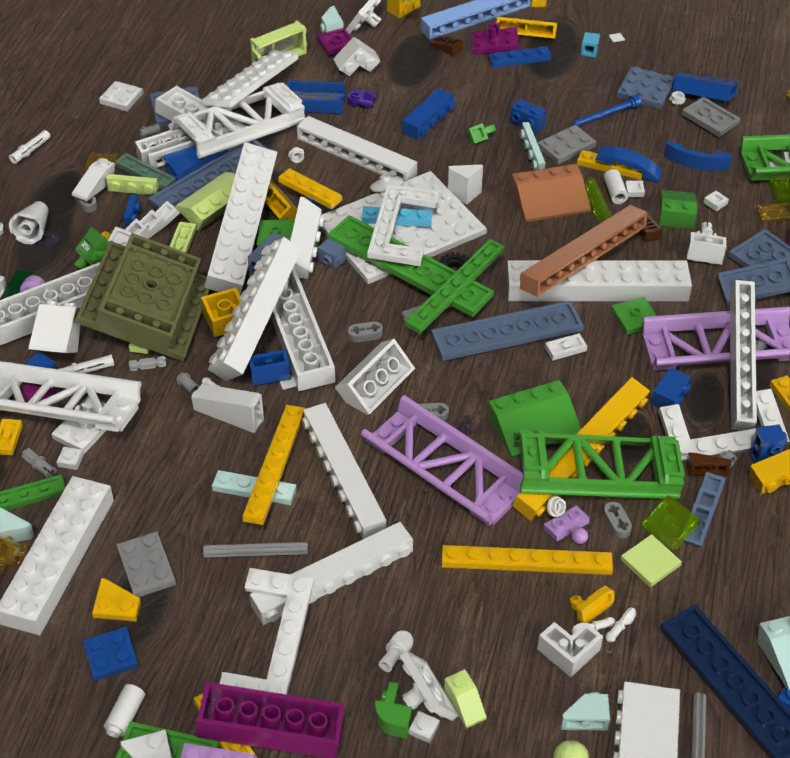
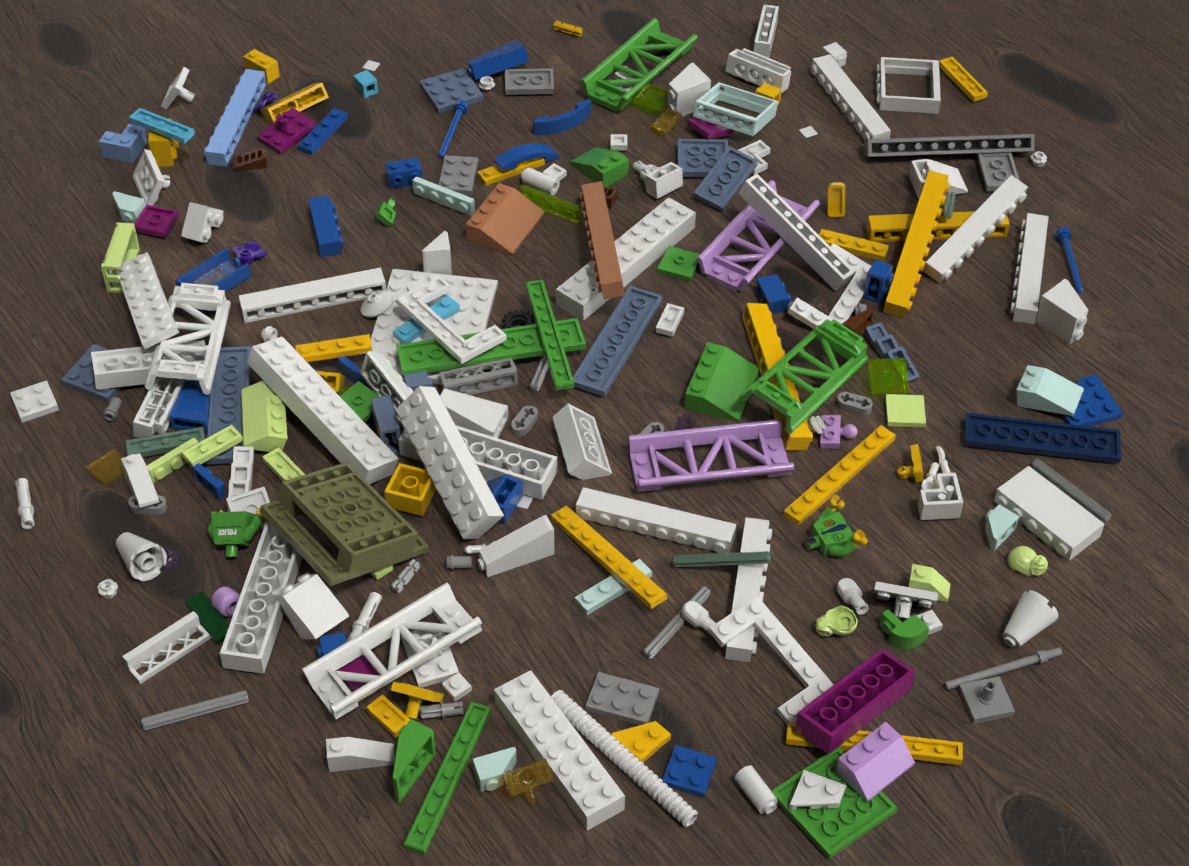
camera: 50 degrees left, 0 degrees up
(34, 436) = (416, 696): none -> yellow tile
(82, 603) = (625, 760): none -> white piece
(158, 191) = (212, 446): none -> yellowish green plate
(268, 554) = (697, 615): none -> white arm
(339, 302) = (475, 413): none -> white slope
(339, 534) = (717, 559): none -> sand green axle
(354, 656) = (837, 621): none -> yellowish green hair
(372, 282) = (481, 381): none -> light grey fence
(449, 592) = (833, 534): none -> bright green torso
(512, 13) = (267, 99): none -> dark purple plate

